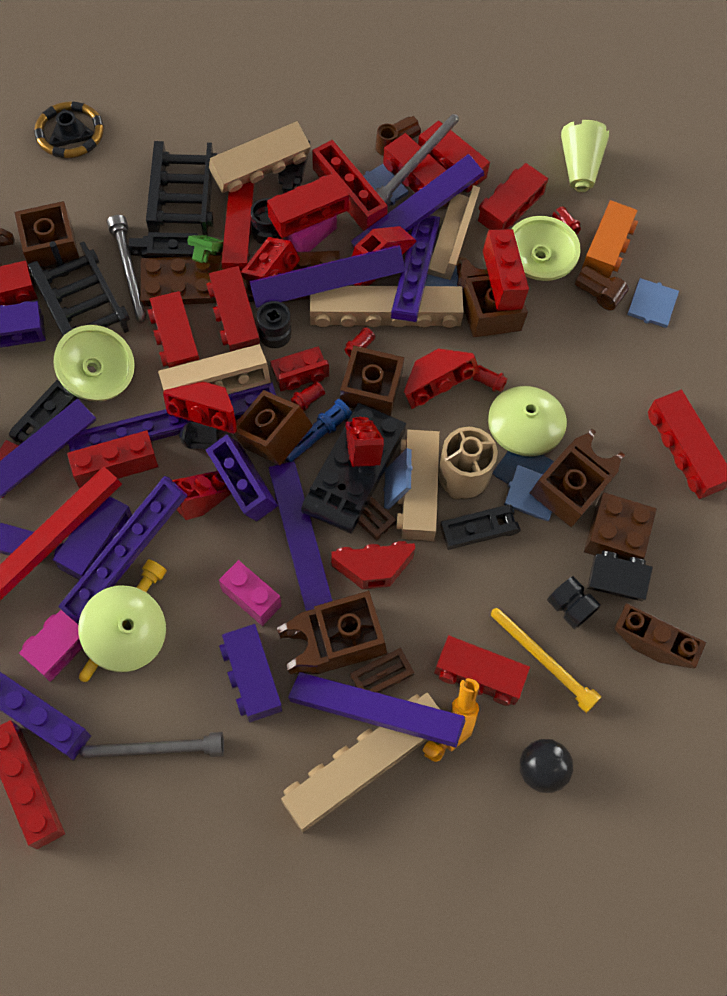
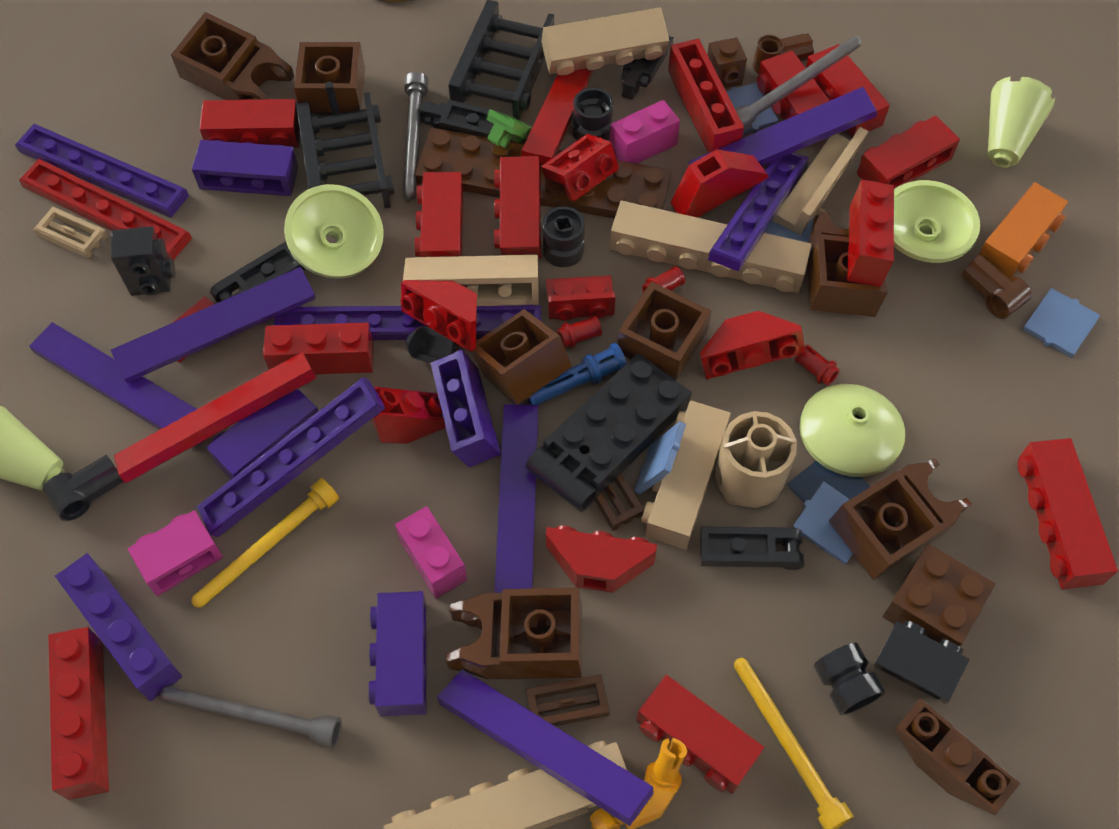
camera: 20 degrees right, 5 degrees down
(107, 640) = (245, 574): yellowish green dish -> none
(308, 205) = (644, 104): red brick -> none
(328, 276) = (645, 192): dark purple tile -> none
(358, 151) = (728, 61): none -> reddish brown brick
(364, 442) = (626, 400): red slope -> none
(565, 217) = (973, 194): red pin -> none

